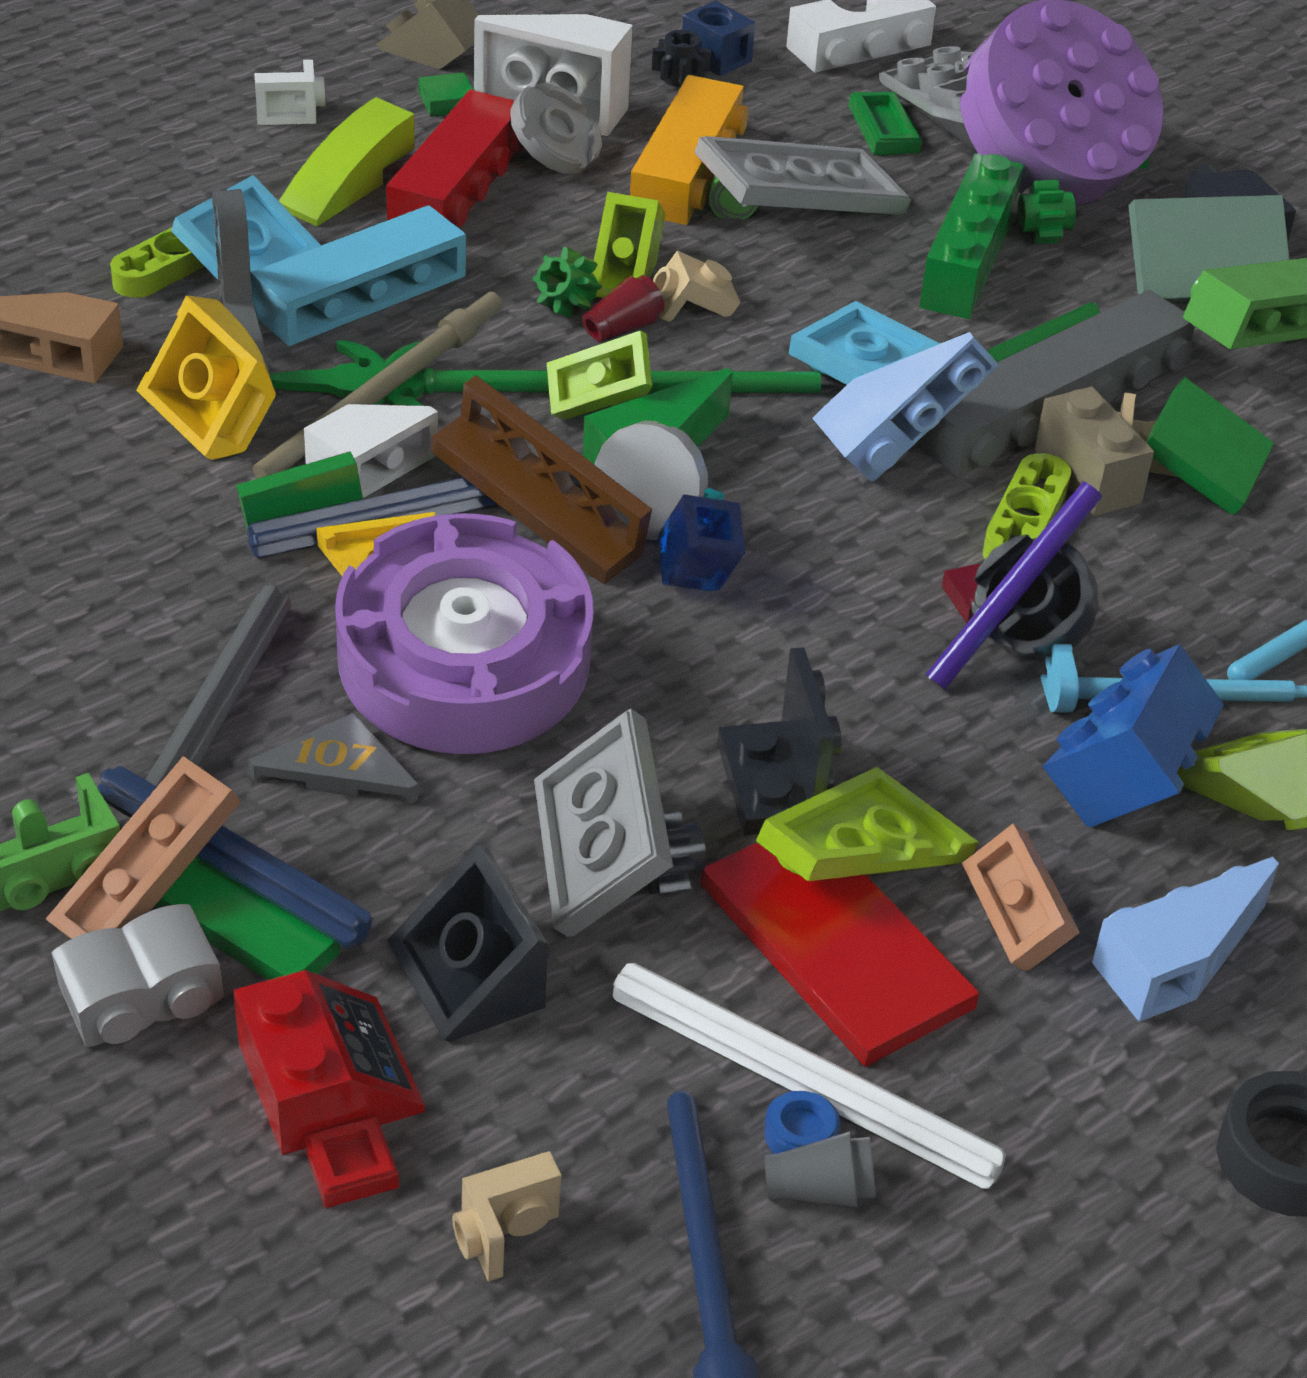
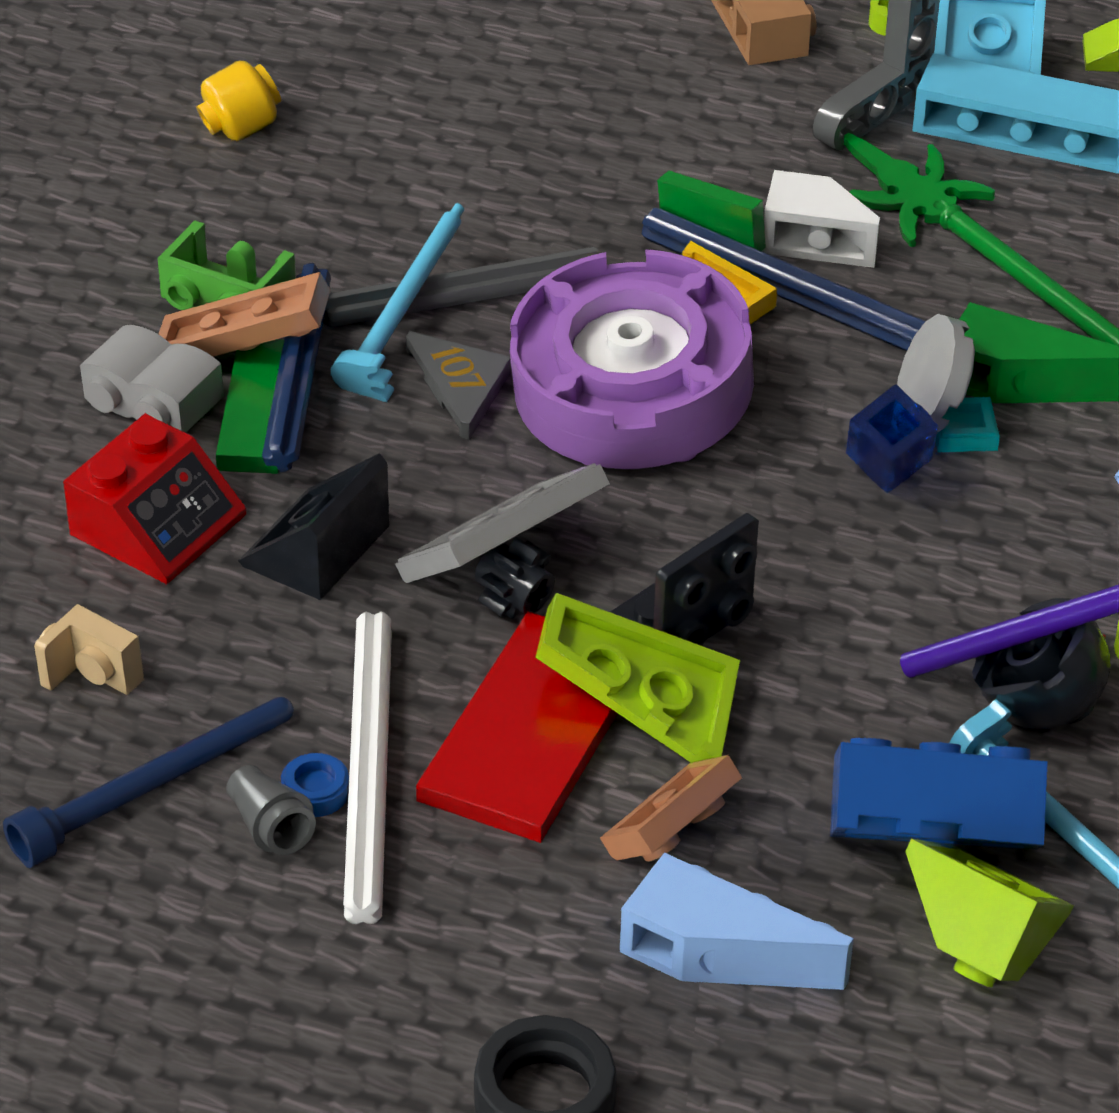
camera: 60 degrees right, 0 degrees up
(210, 379) = (786, 96): yellow slope -> none
(268, 820) = (361, 369): none -> medium azure piece
(351, 1162) = (85, 566): red tile -> none
(453, 331) = (1012, 191): dark tan bar -> none
(540, 488) = (859, 320): reddish brown fence -> none
(600, 376) = (1047, 293): lime slope -> none

